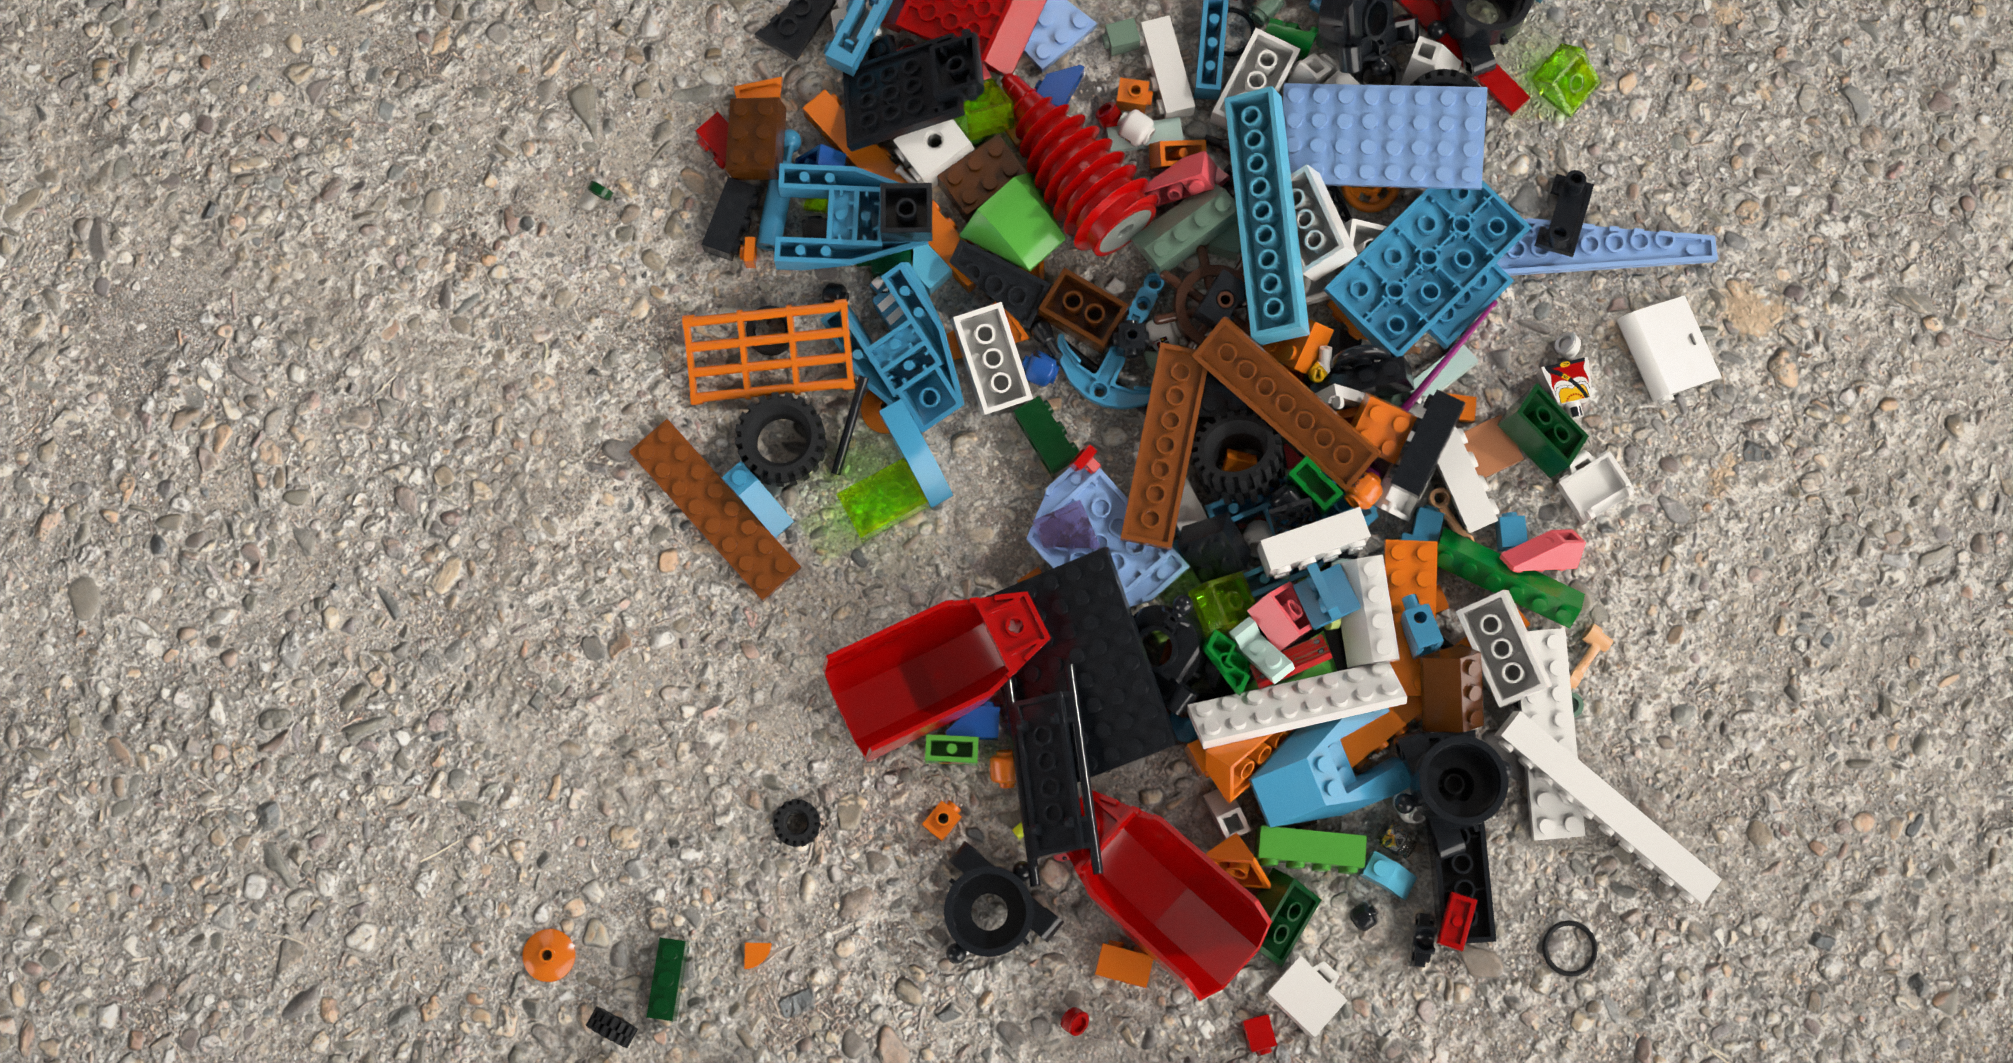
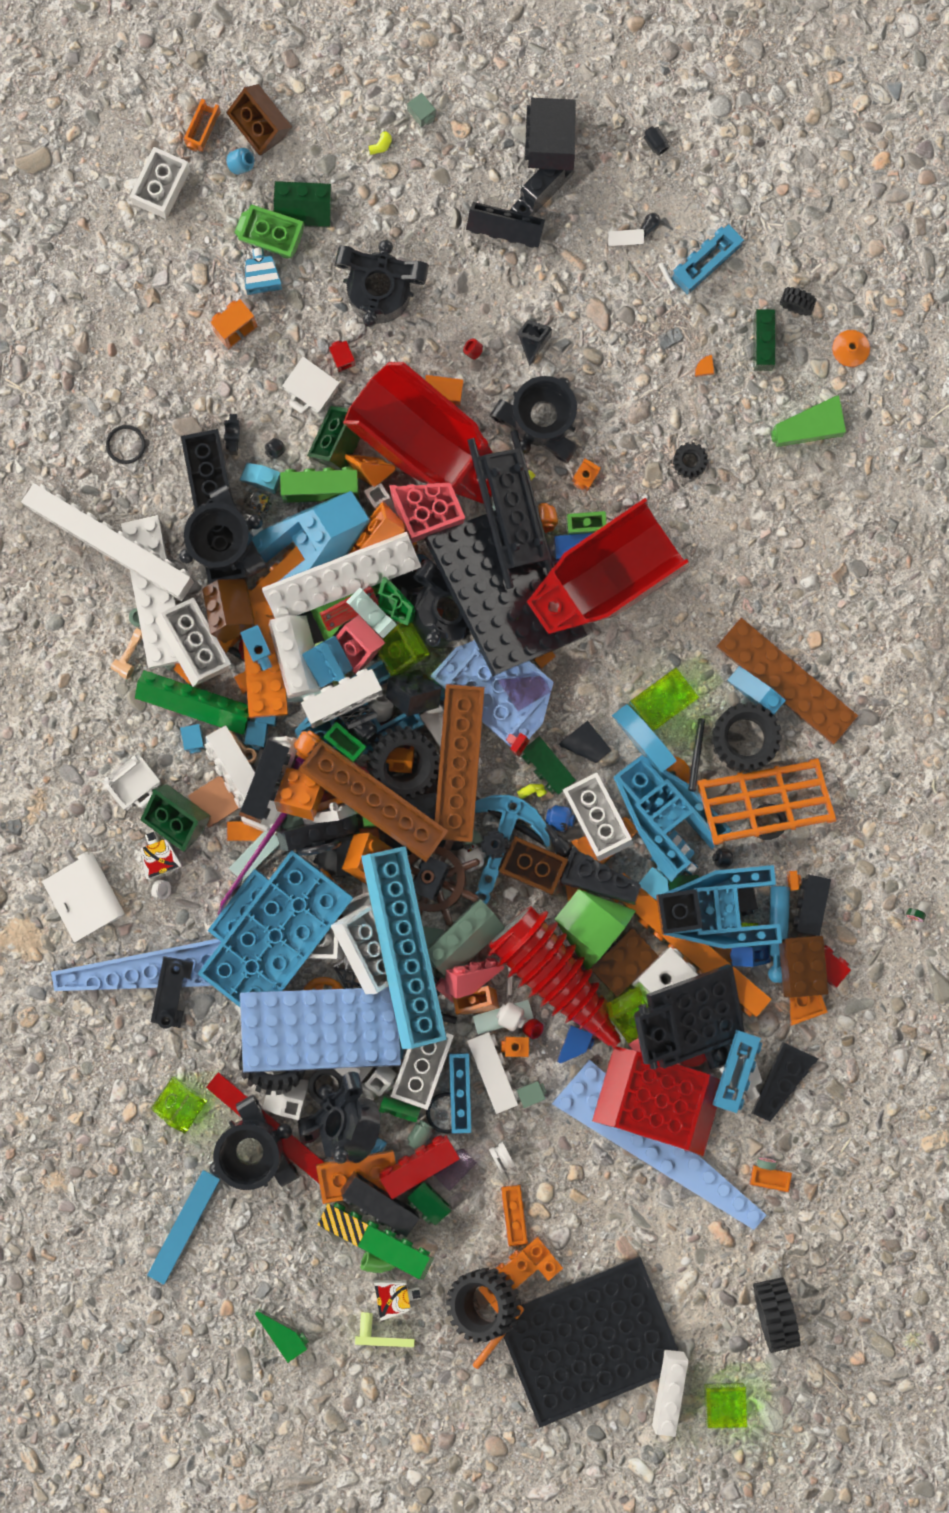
camera: 170 degrees right, 5 degrees up
(622, 850) = (811, 425): none -> bright green slope
(900, 170) = (684, 953): white piece -> none
(989, 1025) = (533, 338): none -> black slope
(991, 461) = (586, 743): none -> black slope
(1072, 411) = (530, 789): none -> neon yellow arm
(1170, 784) = (426, 508): none -> coral wedge
(1322, 365) = (348, 839): arm -> none
(1456, 921) = (210, 444): red plate -> none
(1547, 551) = (165, 723): coral slope -> none

